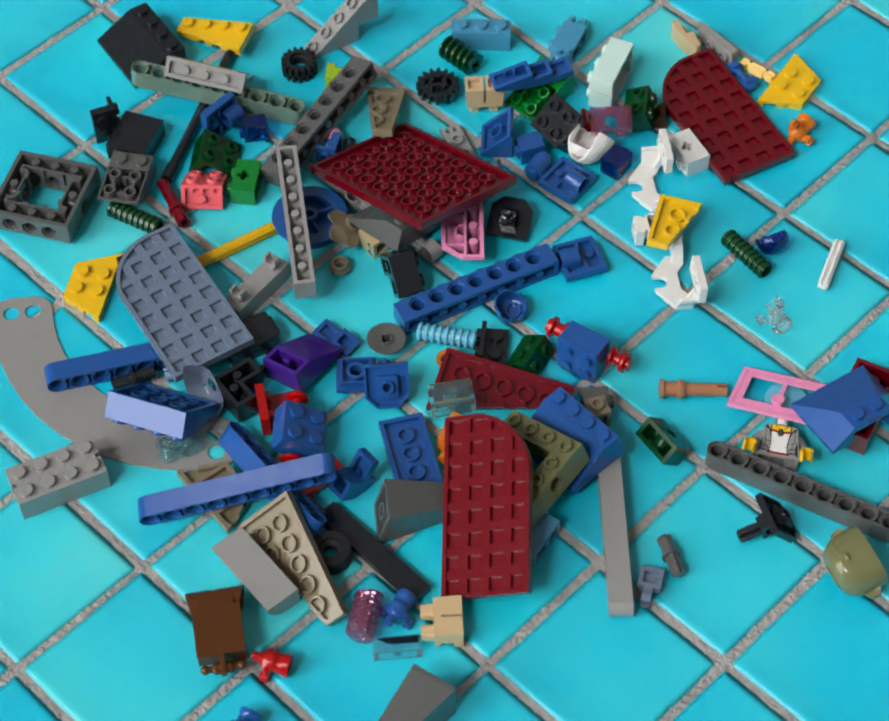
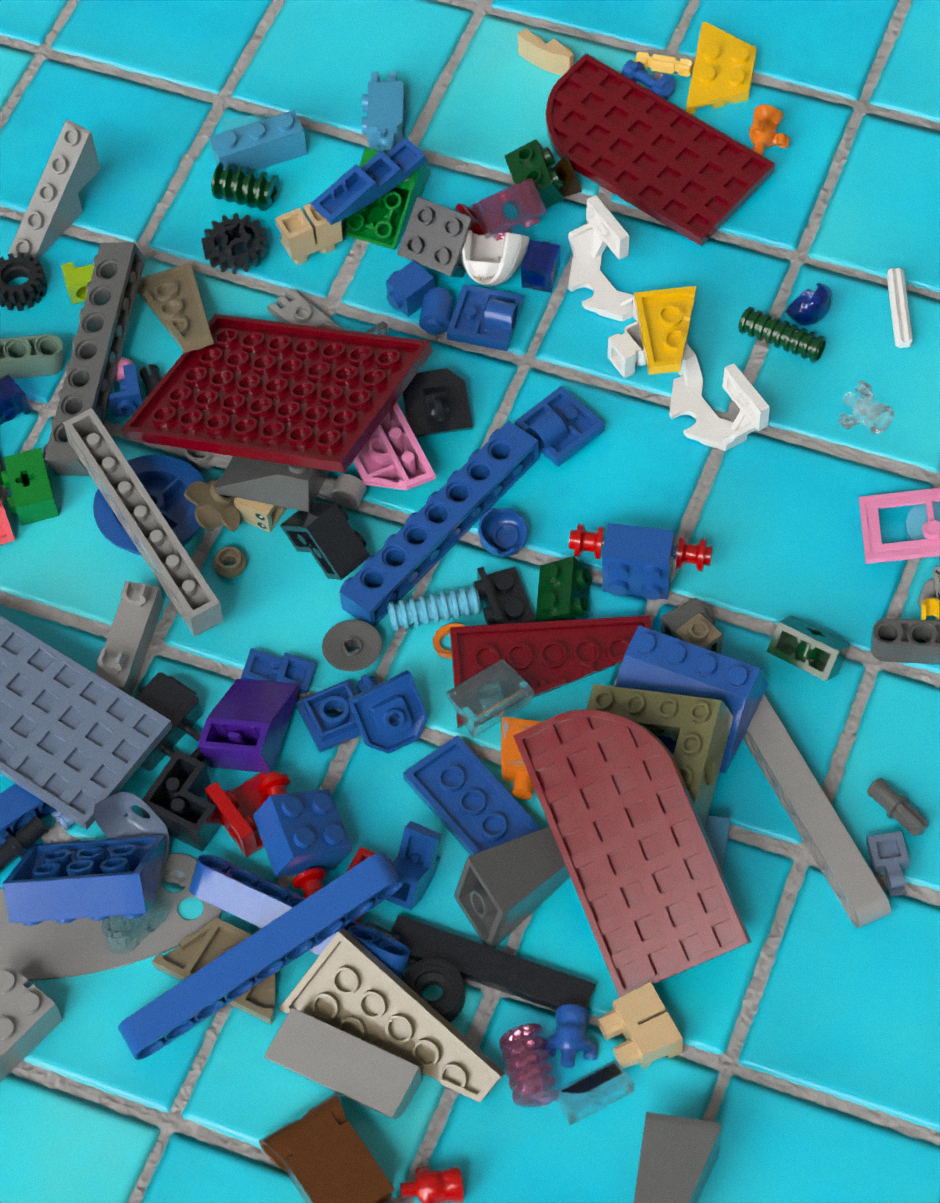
camera: 20 degrees left, 5 degrees up
(237, 244) = (65, 584): yellow axle -> none
(498, 135) = (358, 285): blue slope -> none
(610, 73) = (471, 140): light aqua piece -> none
(681, 389) = (793, 562): nougat pin -> none
(689, 152) = (637, 215): white brick -> none
(721, 47) = (584, 41): light grey hinge -> none

